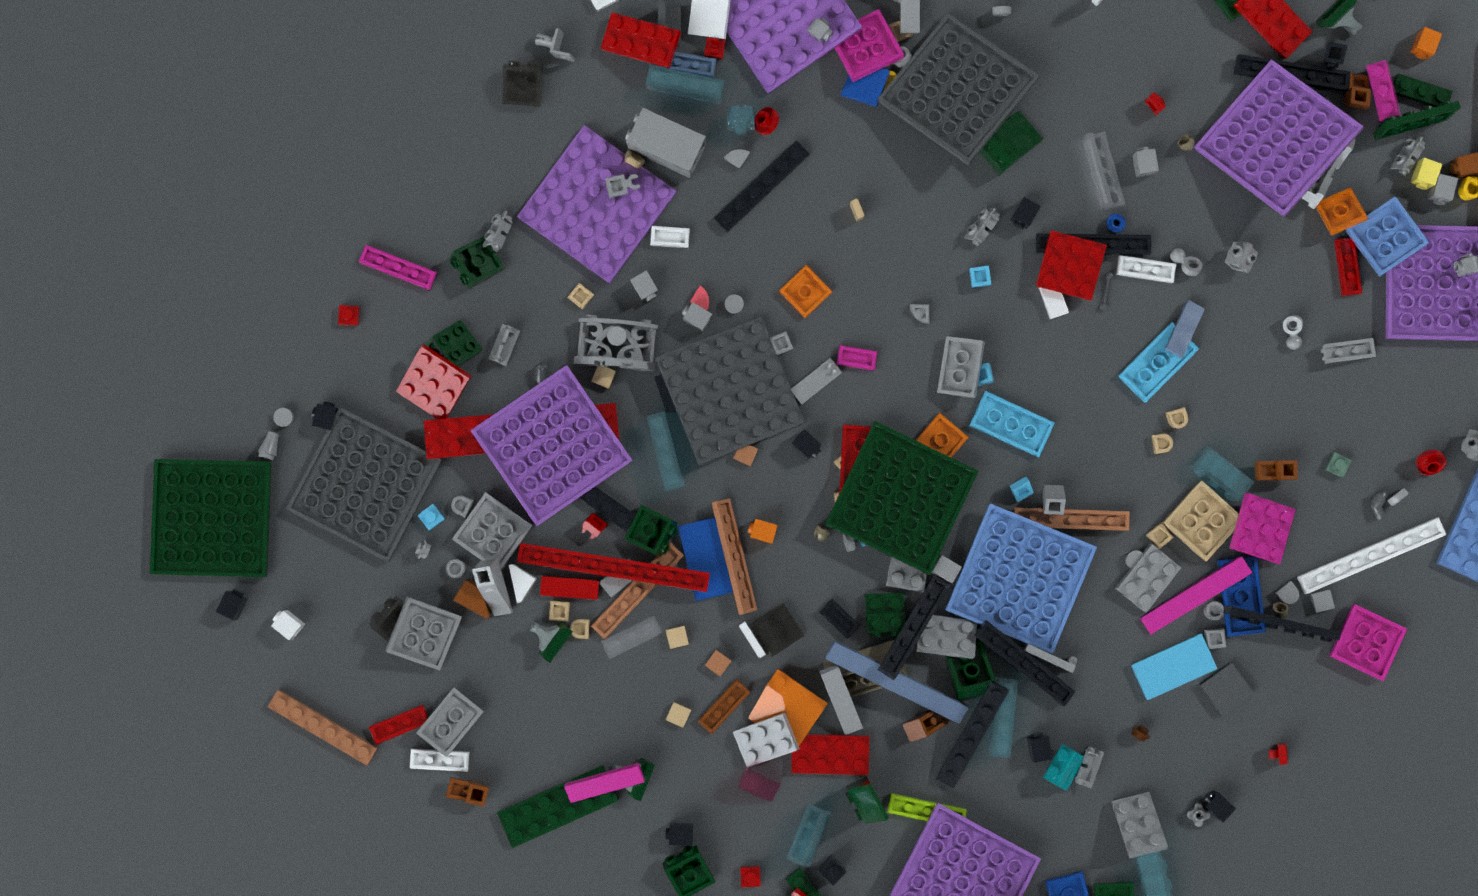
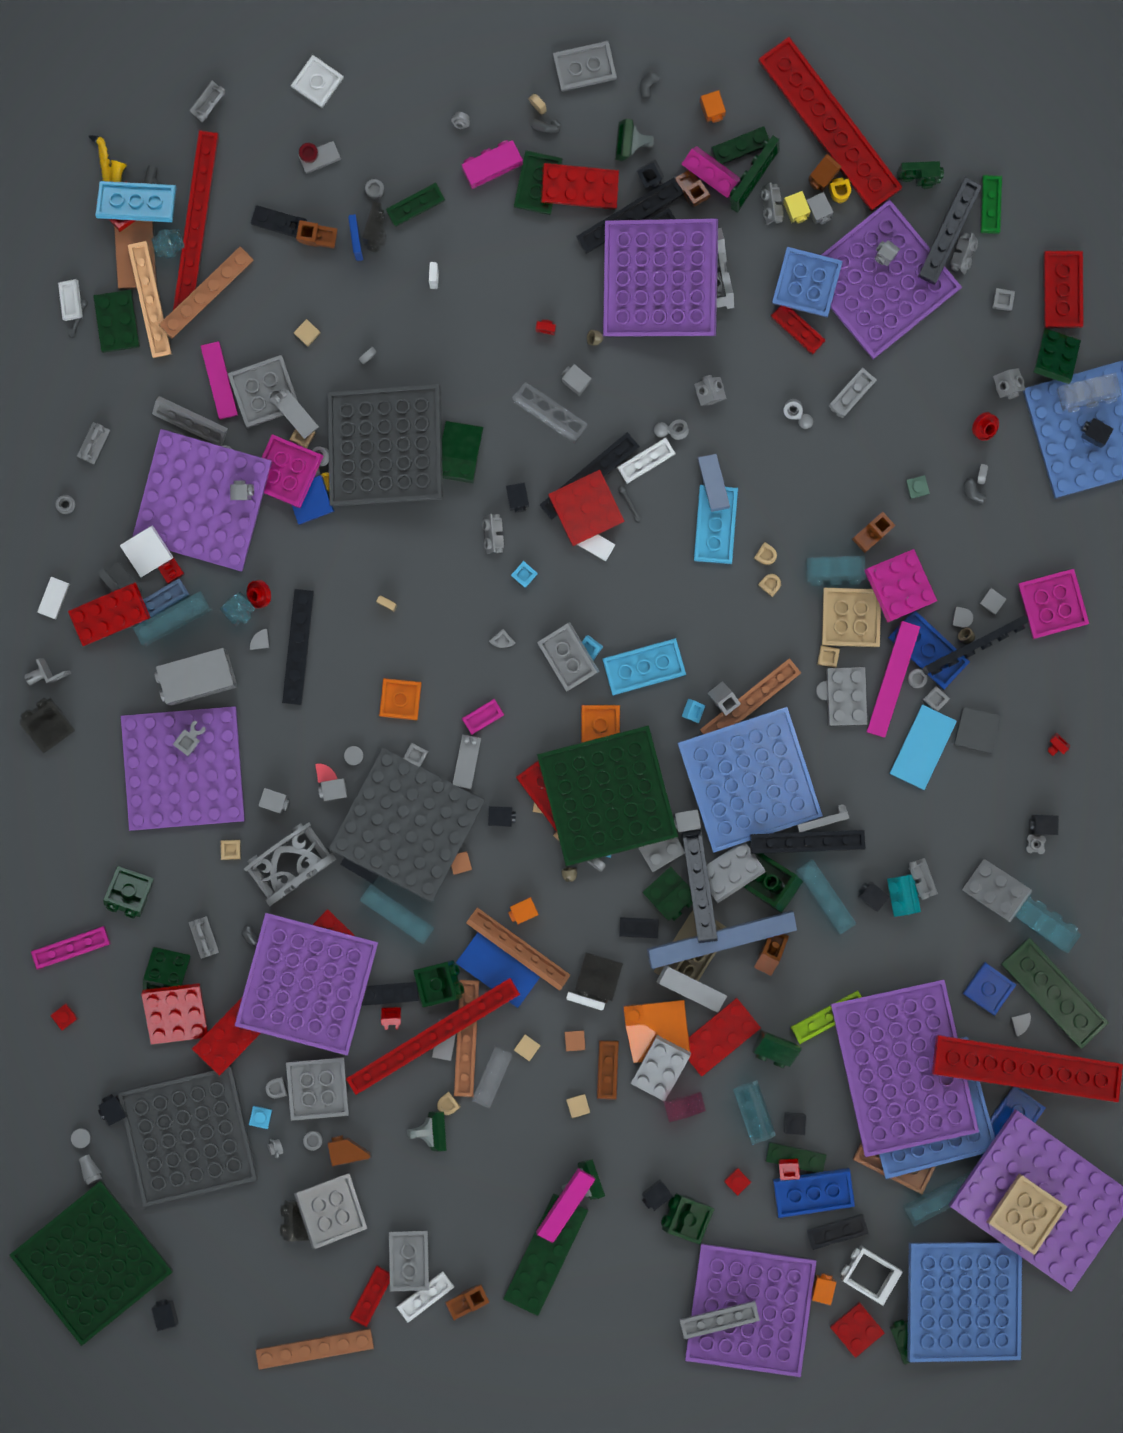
camera: 40 degrees left, 0 degrees up
(287, 624) = (220, 1293): white brick -> none
(492, 586) = (353, 1130): light grey slope -> none
(500, 223) = (122, 846): light grey hinge -> none
(521, 581) = (373, 1107): white slope -> none
(559, 611) = (420, 1104): tan tile -> none
(569, 587) = (412, 1080): red tile -> none
(603, 376) = (301, 896): tan tile -> none
(617, 335) = (284, 857): light grey tile -> none
(634, 159) = (182, 709): tan tile -> none
(670, 237) = (260, 745): white tile -> none
(972, 734) = (813, 929): black plate -> none
(1111, 227) = (593, 451): blue plate -> none
(1140, 732) = (940, 819): reddish brown plate -> none
(1341, 211) = (756, 291): orange tile -> none
(1371, 555) = (1000, 535): white tile -> none

